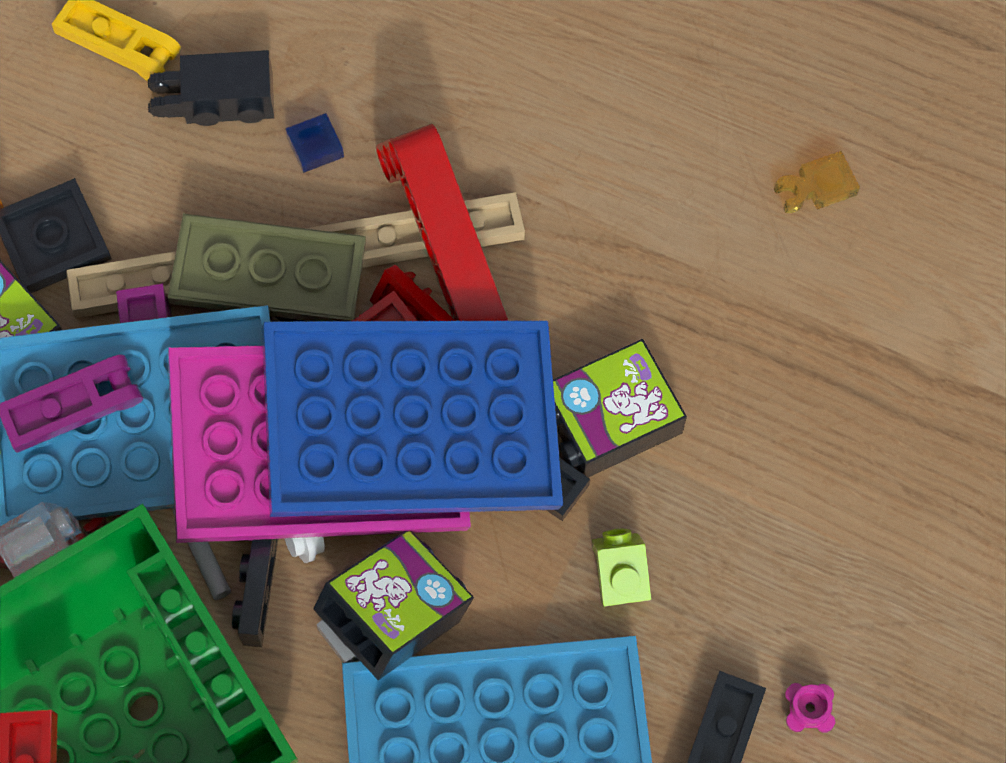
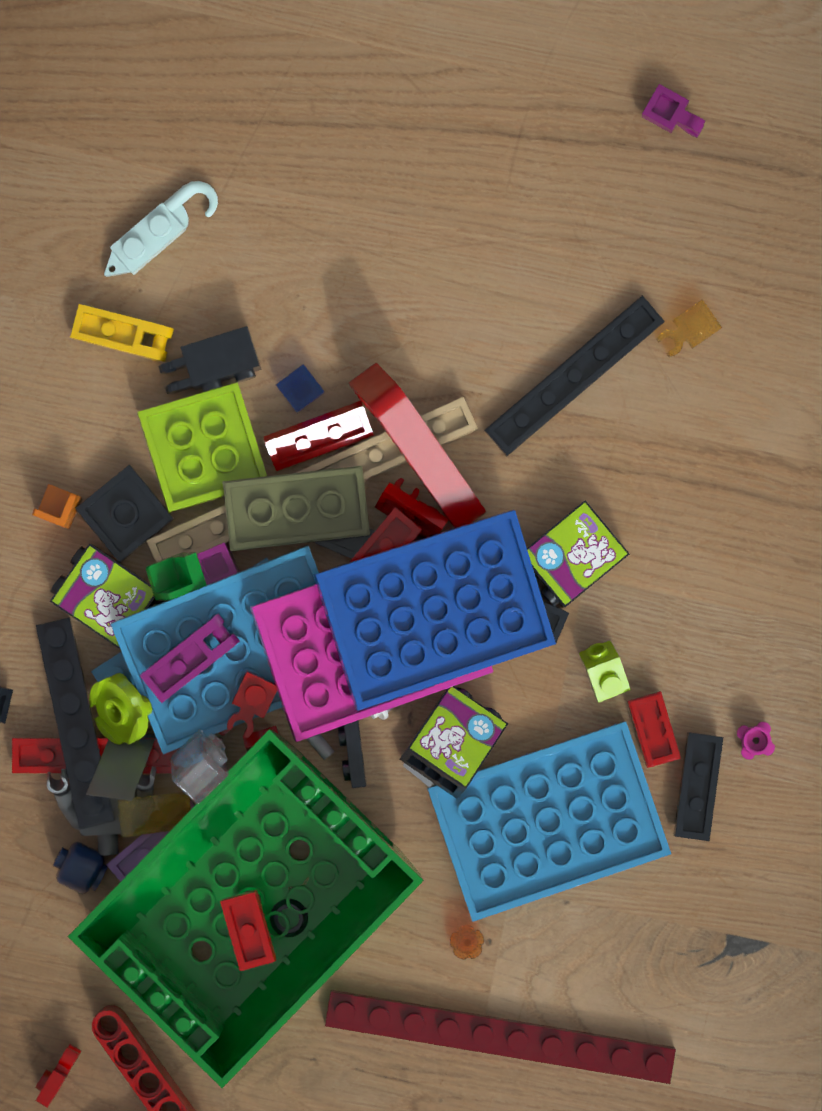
camera: 10 degrees left, 20 degrees up
(87, 307) = (175, 576): none -> green panel
(139, 479) = (252, 697): none -> red plate
(168, 169) = (200, 445): none -> lime plate
(321, 198) = (318, 435): none -> plate
(659, 206) = (574, 376): none -> black tile
(671, 659) = (653, 729): none -> red plate

